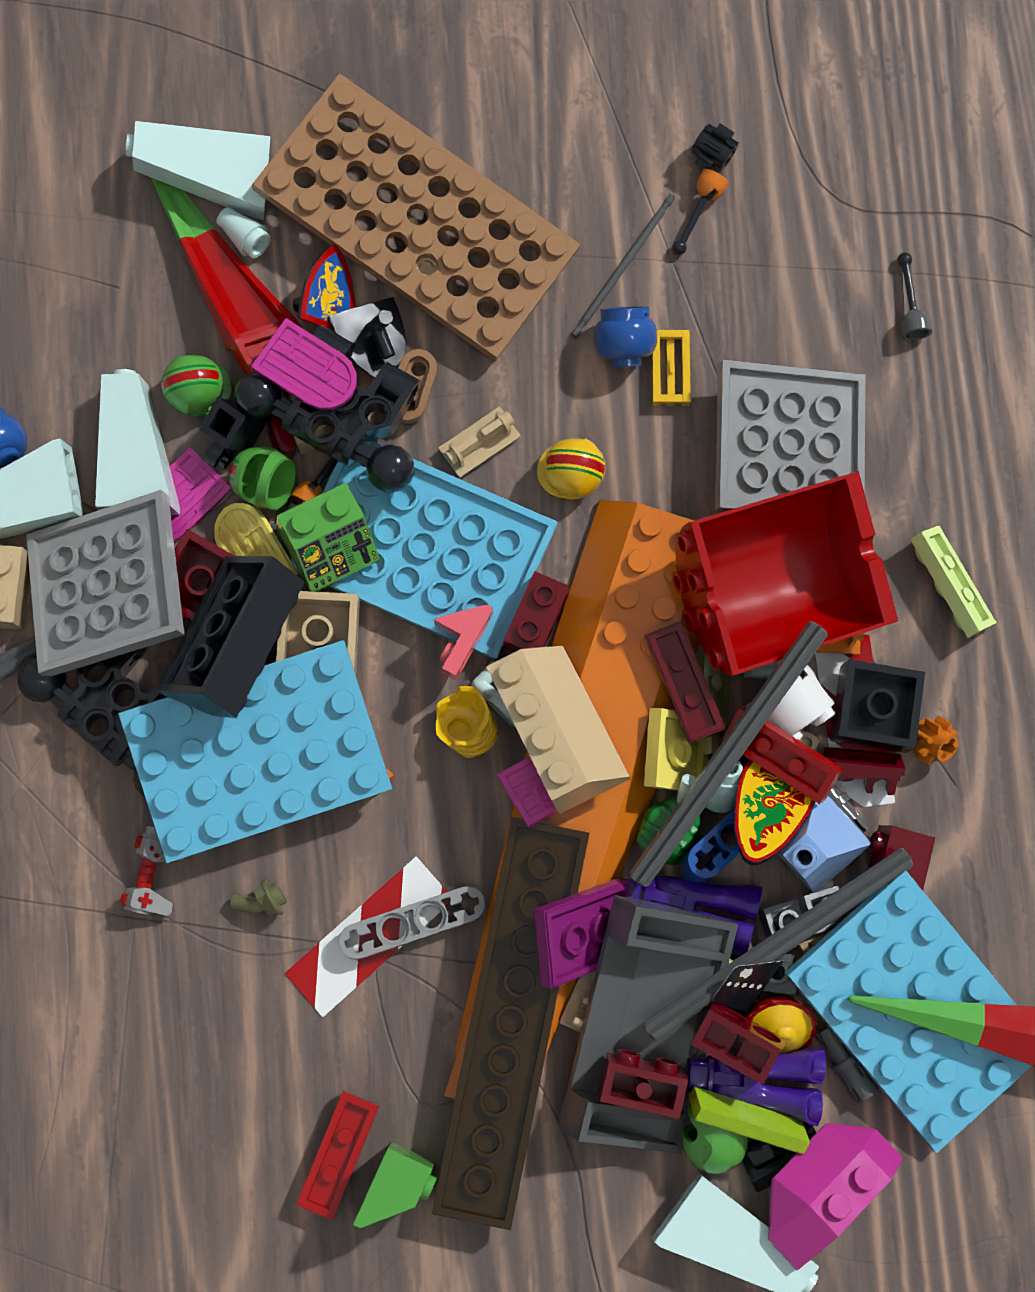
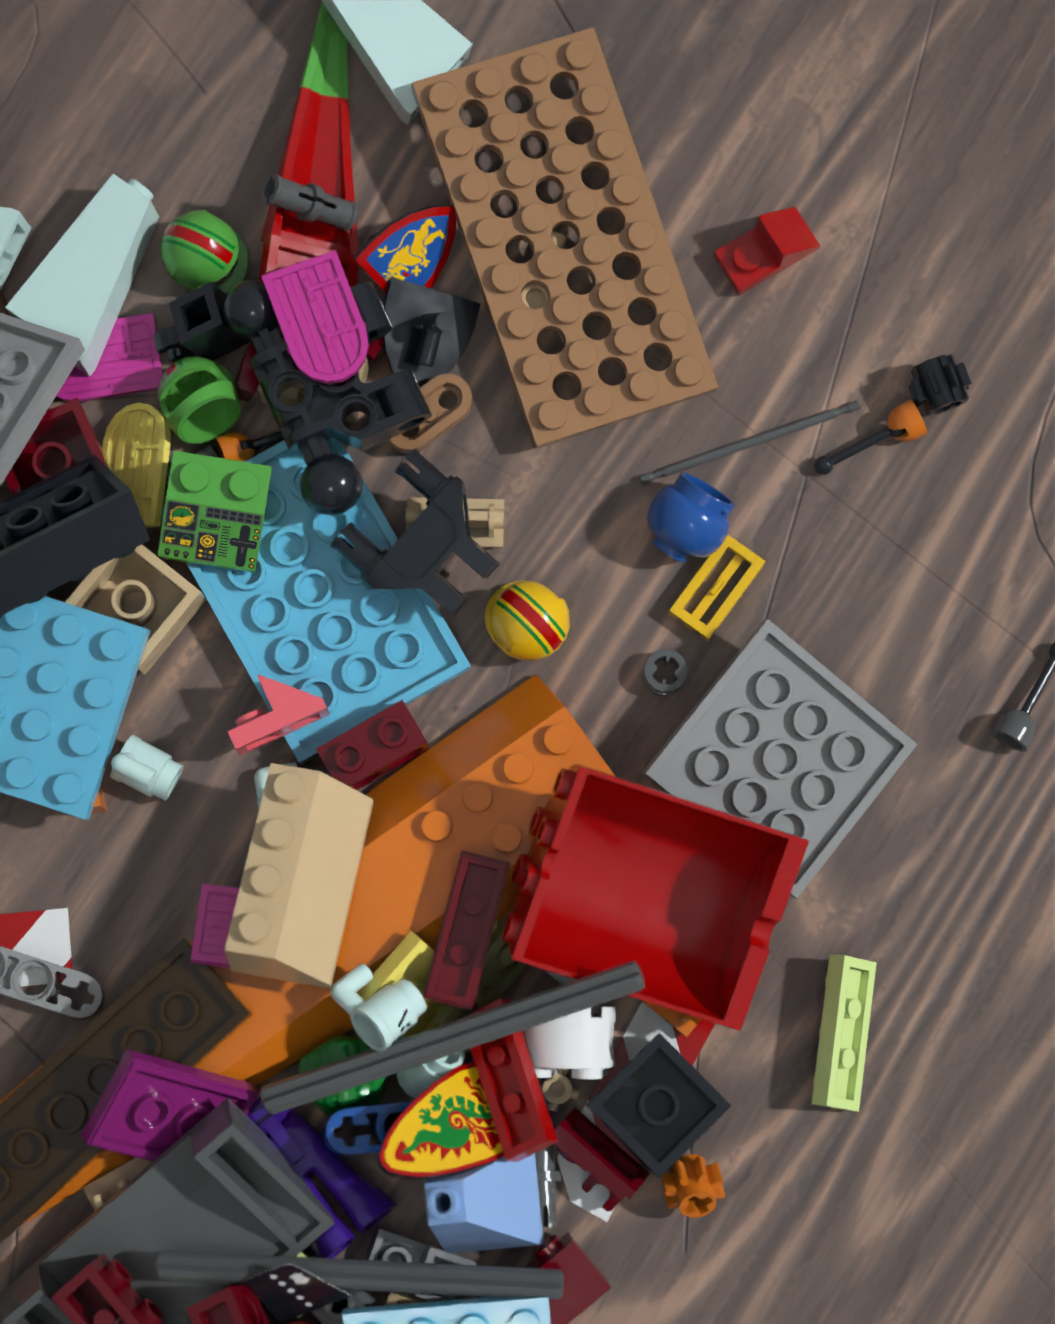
camera: 40 degrees right, 0 degrees up
(241, 304) = (309, 202): none -> dark grey pin
(246, 234) = (374, 128): light aqua cone -> none
(403, 732) = (146, 769): none -> light aqua piece
(466, 722) = (217, 807): yellow hair -> none
(477, 463) = (426, 545): none -> black connector
(545, 141) = (766, 250): none -> red slope
(667, 445) = (679, 675): none -> dark grey bush
(675, 771) = (383, 1015): none -> light aqua piece

